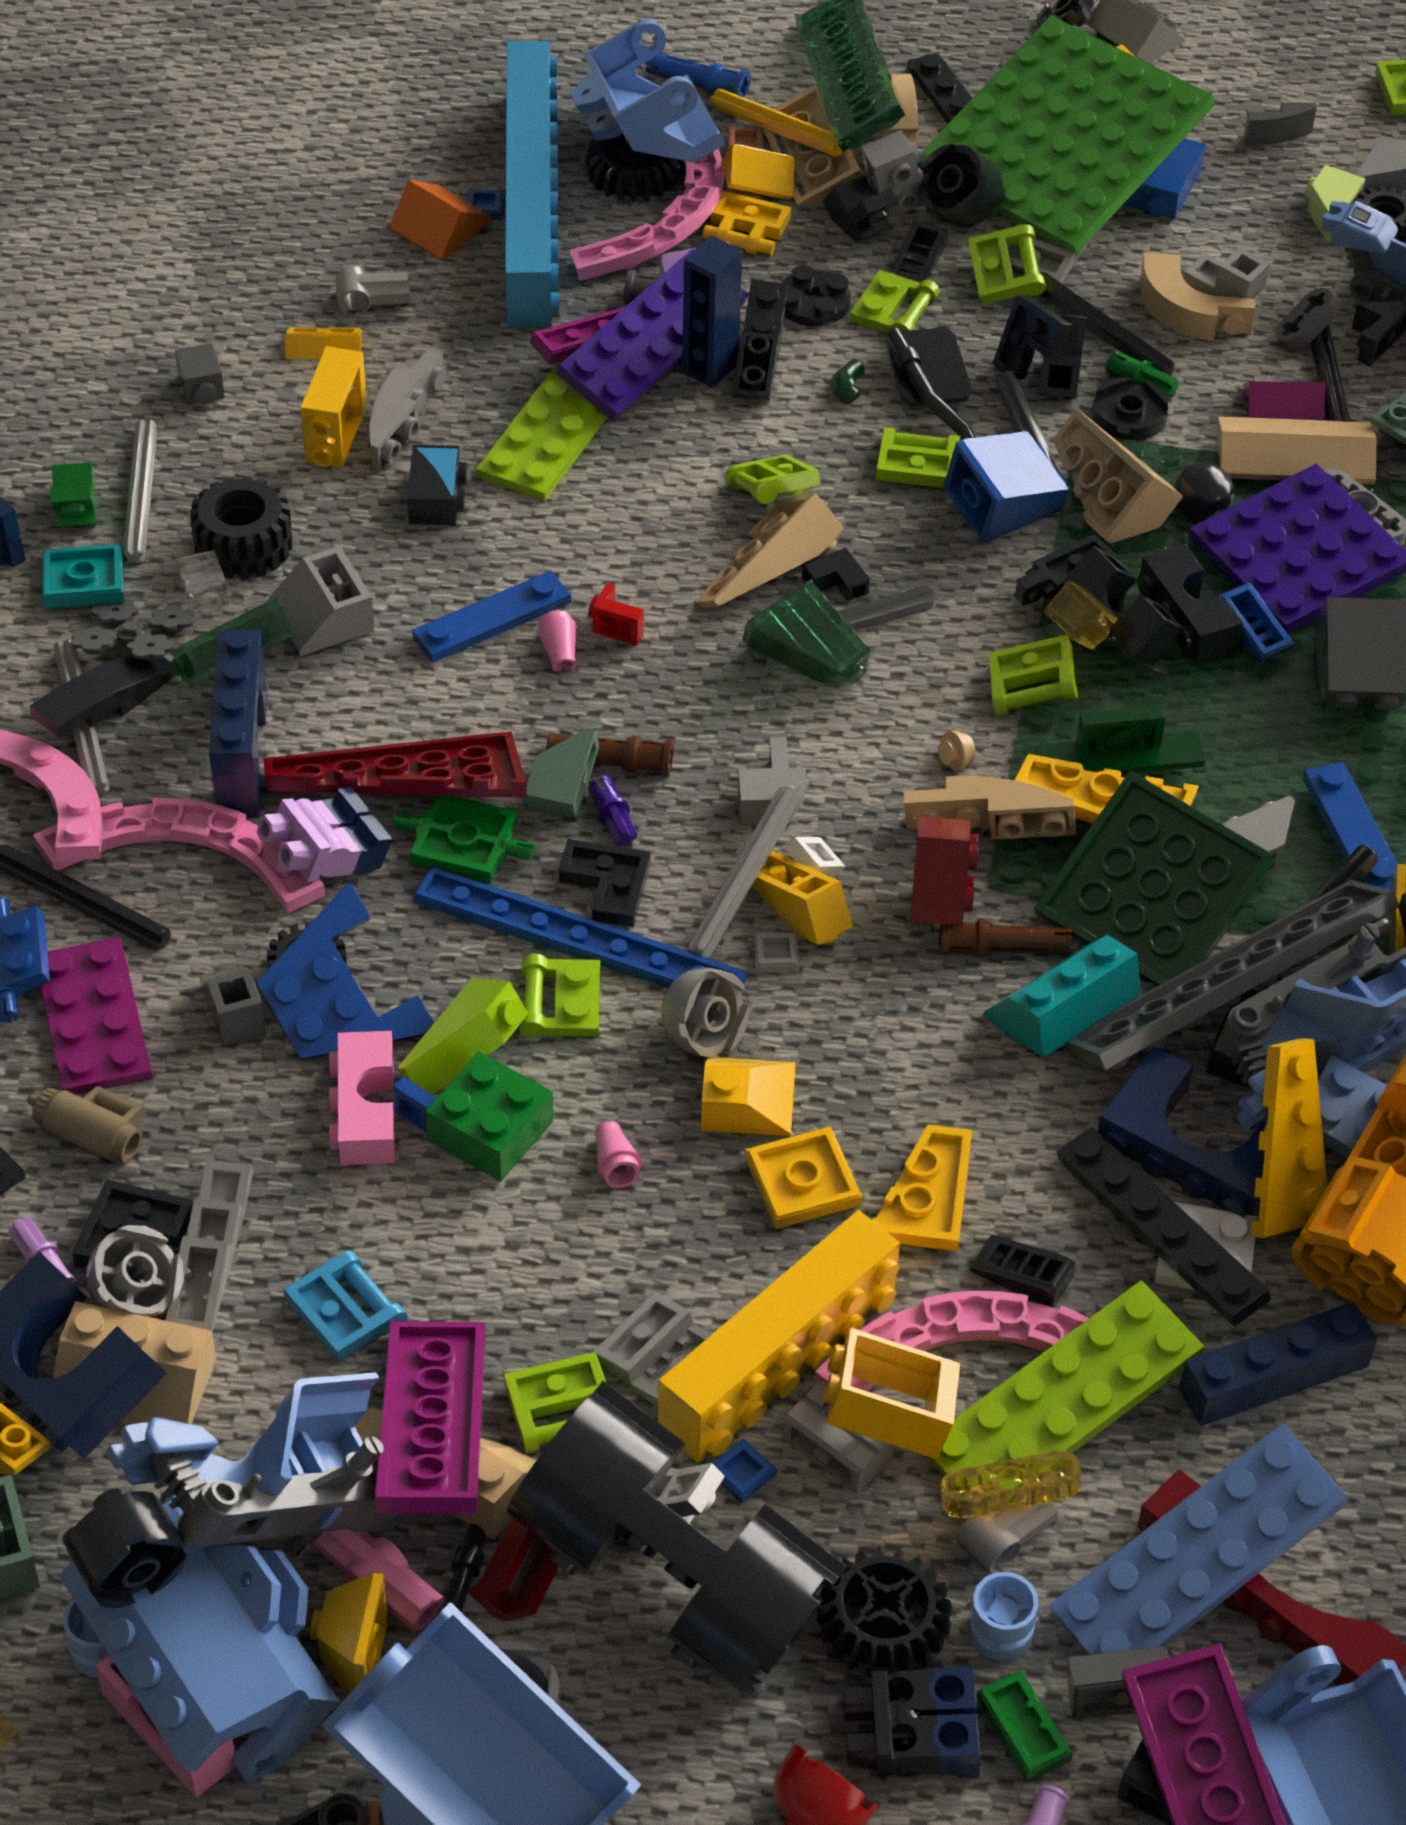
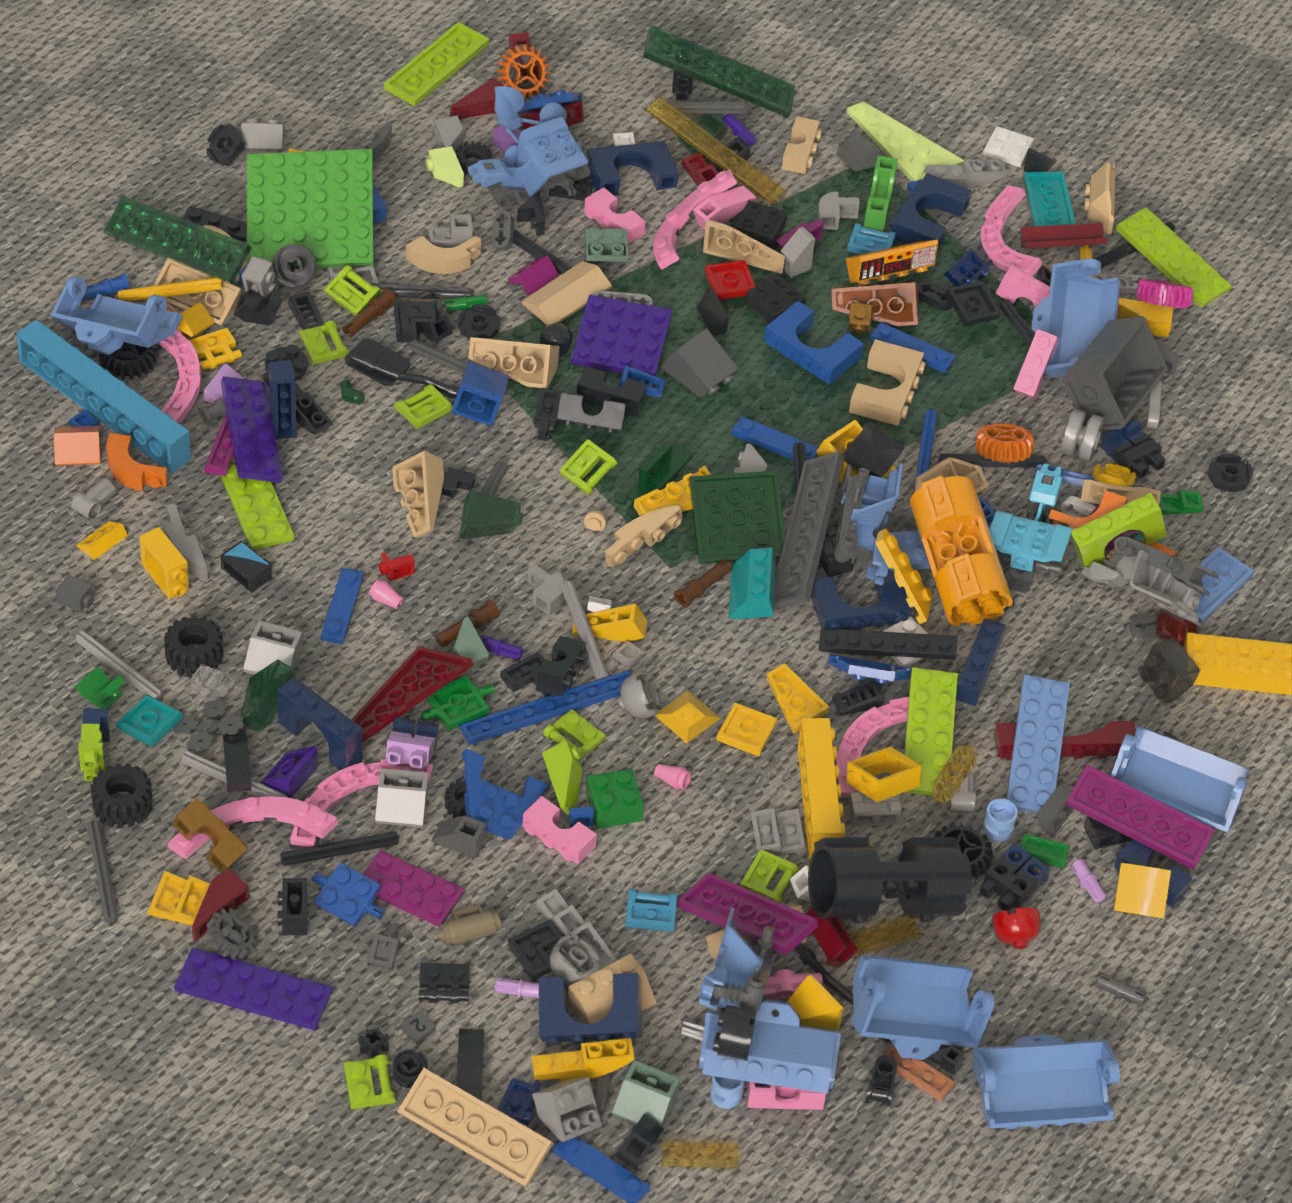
camera: 50 degrees left, 0 degrees up
(150, 764) = (292, 771): none -> dark purple slope
(226, 893) = (402, 797): none -> slope
(456, 269) = (129, 471): none -> orange arch
(609, 1630) = (885, 935): none -> clear yellow tile
(618, 897) = (558, 675): none -> black arch
(775, 476) = (379, 455): lime plate -> none
(941, 867) = (662, 571): dark red brick -> none
(988, 306) = (375, 308): none -> reddish brown pin
(1080, 615) = (585, 427): clear yellow brick -> none
(1088, 1239) = (864, 668): none -> blue wing

